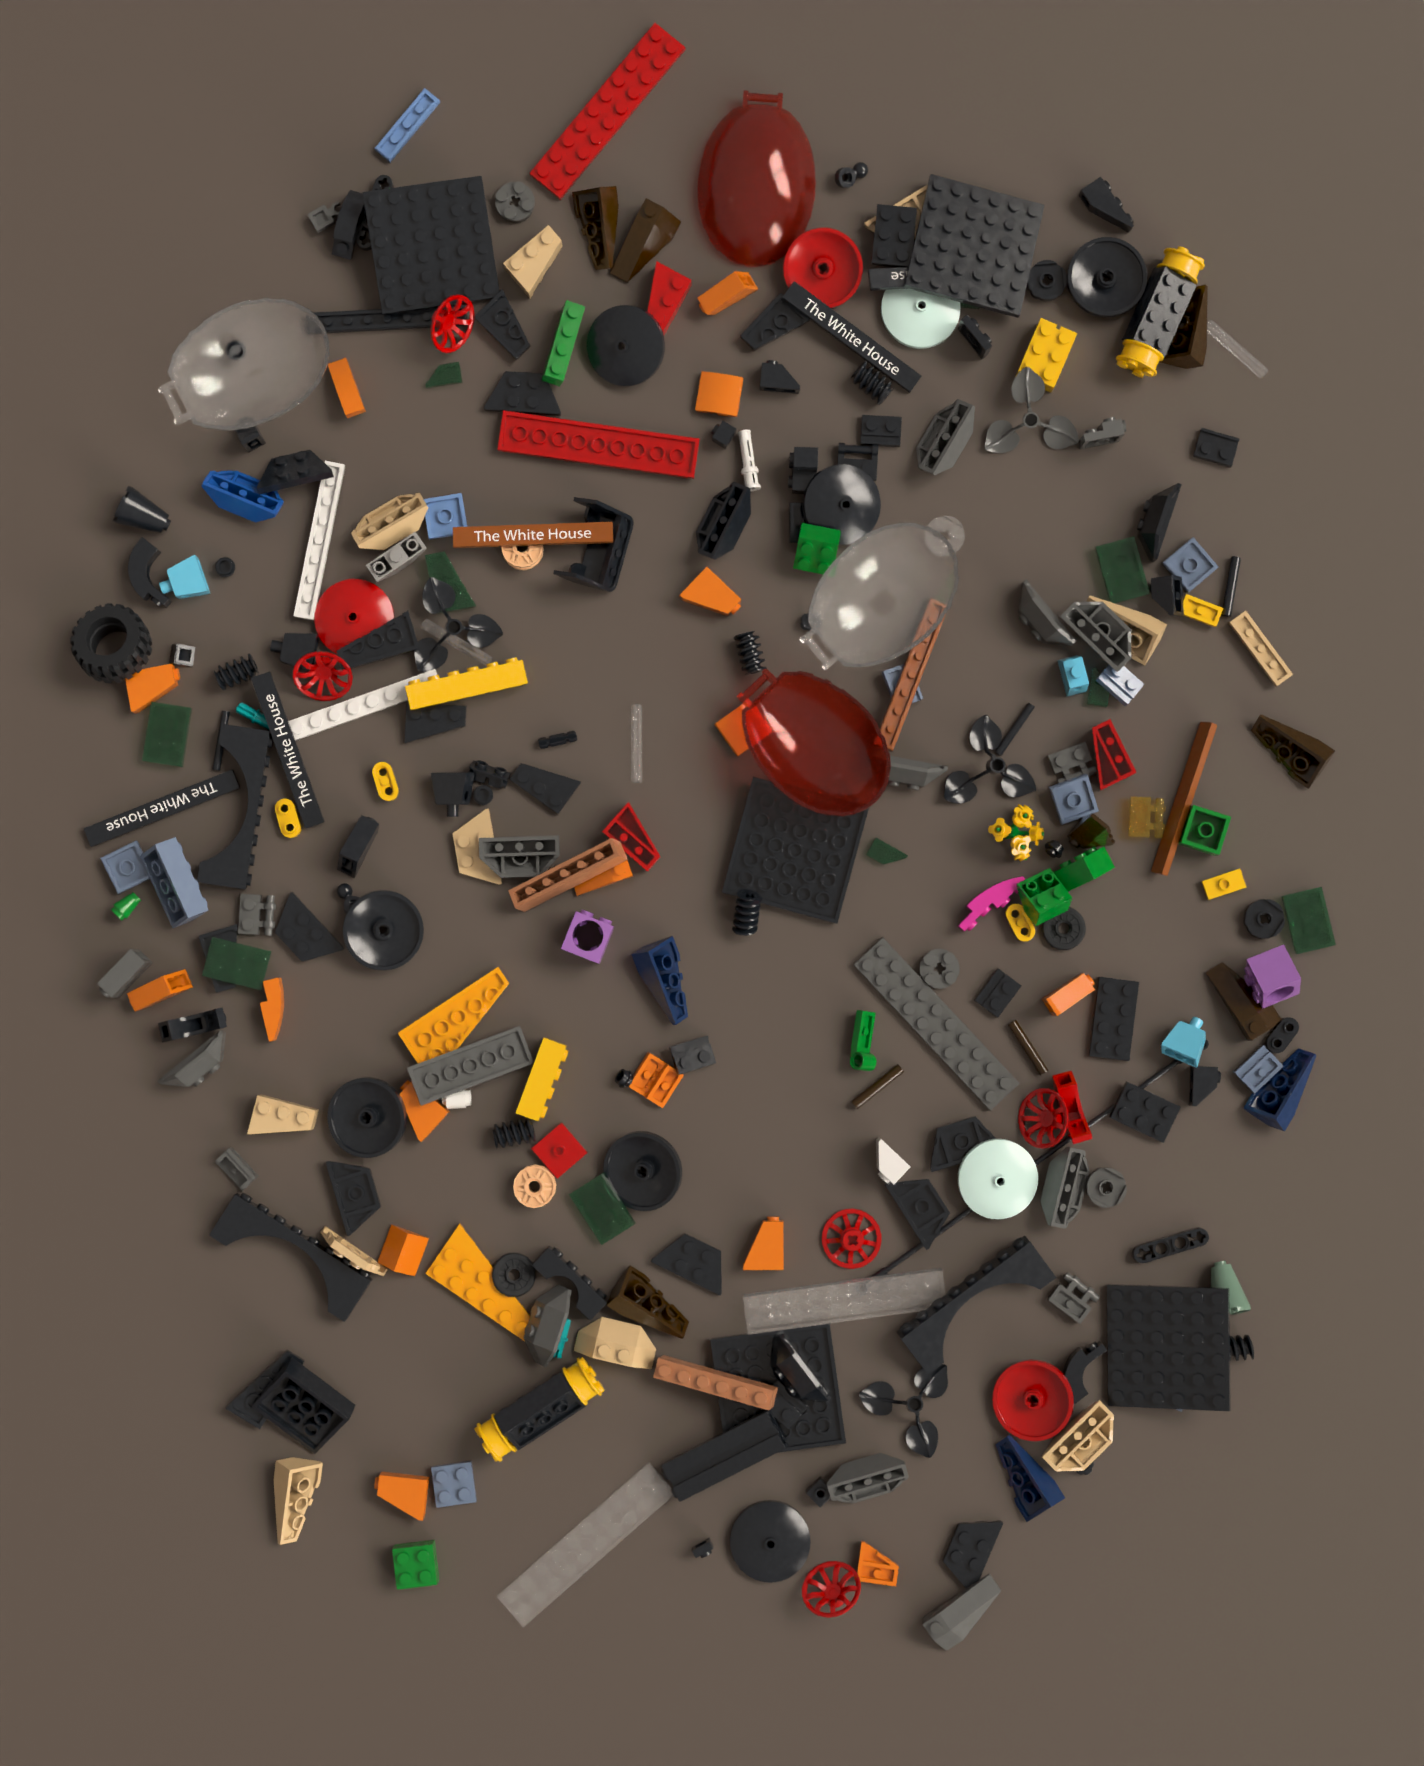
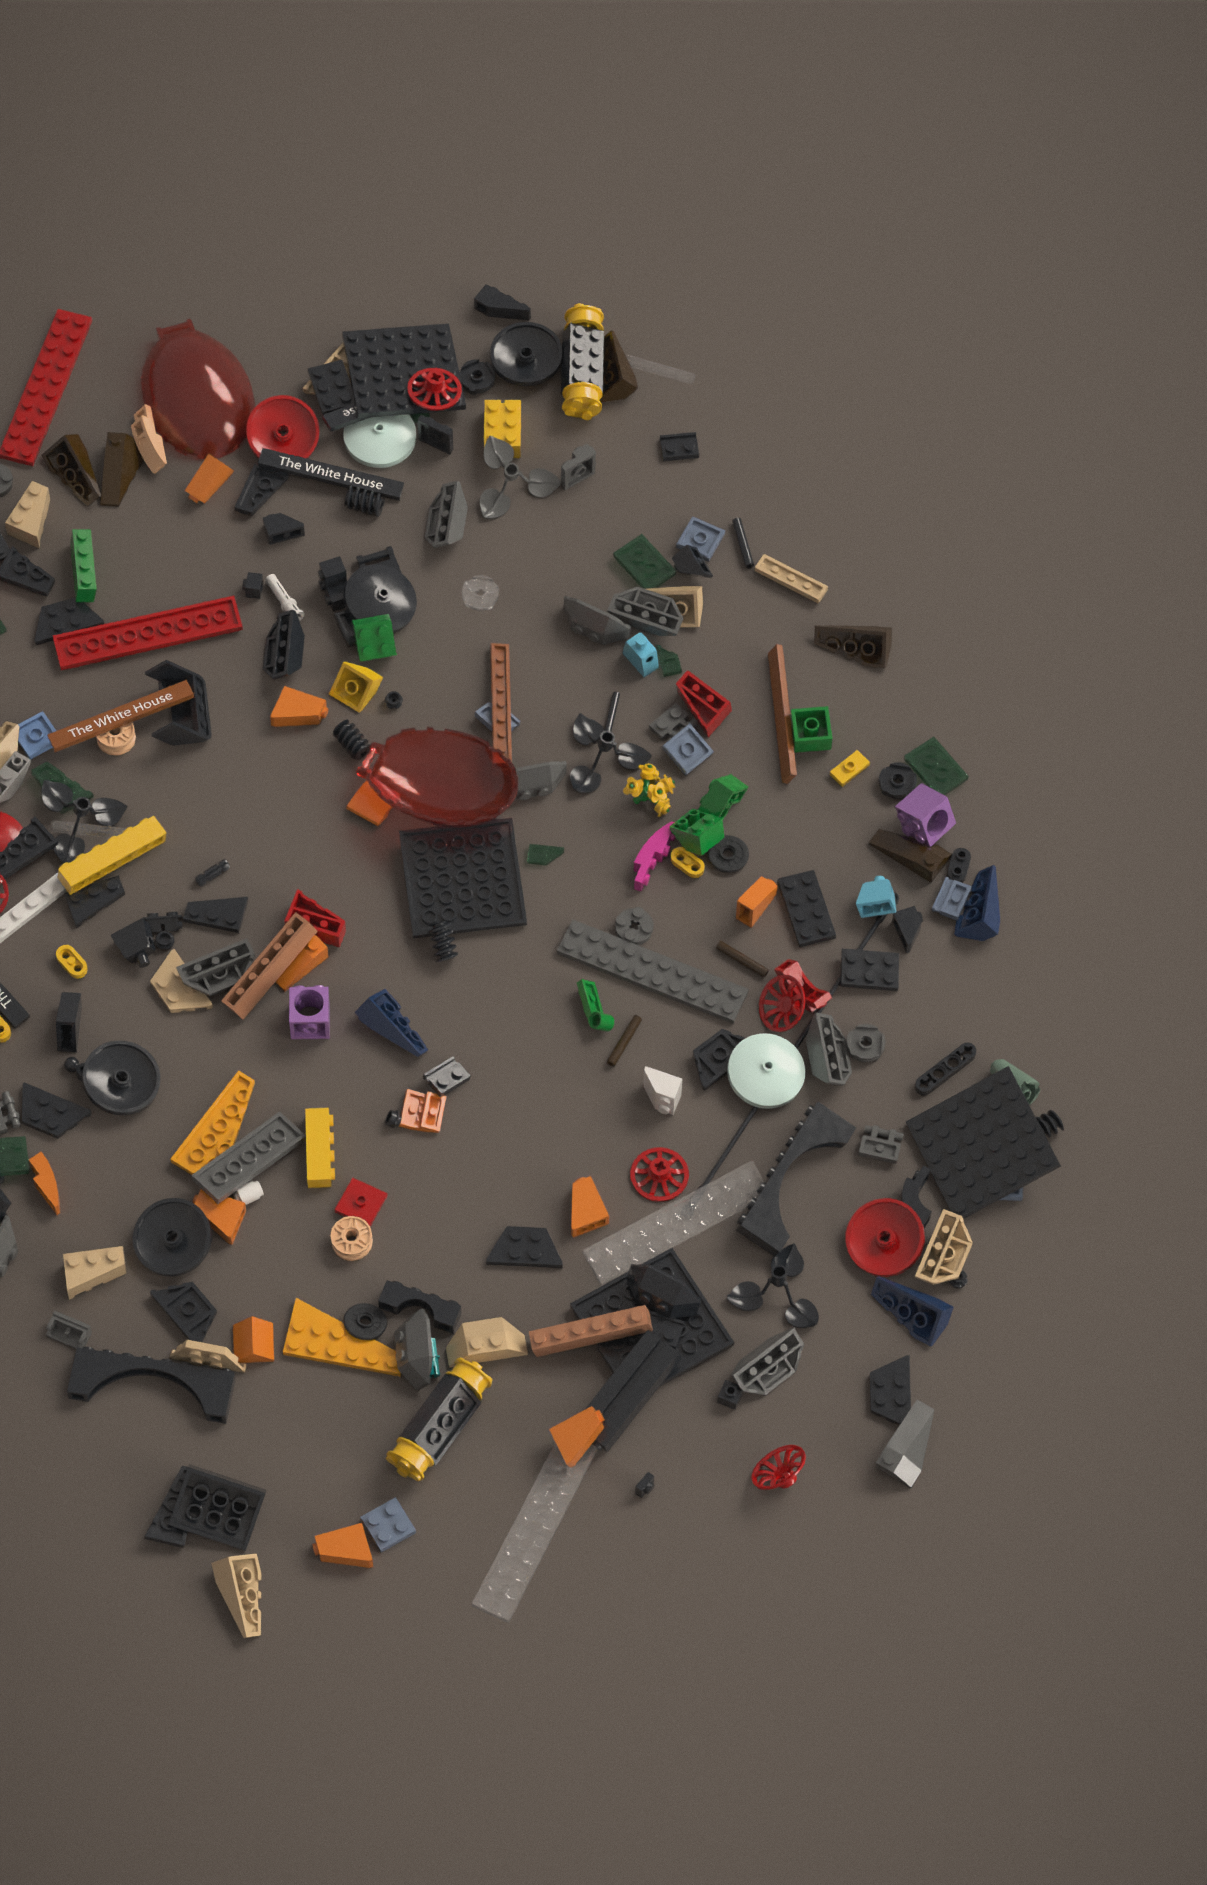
camera: 20 degrees left, 25 degrees down
(415, 1564) = (382, 1605): green brick -> none
(513, 1132) = (312, 1199): black piece -> none
(602, 1208) = (421, 1232): clear green plate -> none
(632, 1183) = (427, 1179): black dish -> none
(636, 743) = (283, 849): clear axle -> none
(641, 1302) = (488, 1298): dark brown wedge -> none
(642, 342) = (152, 555): black dish -> none
(658, 1481) = (577, 1434): none -> orange slope
(667, 294) = (158, 500): red wedge -> none
(683, 225) = (147, 440): none -> light nougat slope
(719, 394) = (236, 557): orange slope -> none
(767, 1522) = (701, 1473): black dish -> none
(778, 592) = (355, 685): none -> yellow slope
(859, 170) = (272, 361): black plate -> none
(876, 1567) = (812, 1438): orange wing -> none
(881, 430) = (388, 535): black plate -> none
(882, 595) = (446, 646): clear windscreen -> none
(921, 1207) = (708, 1121): black wing -> none
(996, 284) = (434, 384): none -> red wheel
(998, 993) = (695, 926): black plate -> none
(1054, 849) = (689, 794): black plate -> none
(1090, 833) = (714, 758): dark brown wedge -> none
(1120, 684) = (684, 647): plate -> none
(1140, 817) = (752, 744): clear yellow plate -> none
(1156, 520) = (655, 515): black wedge -> none
(1201, 610) = (727, 568): yellow plate -> none

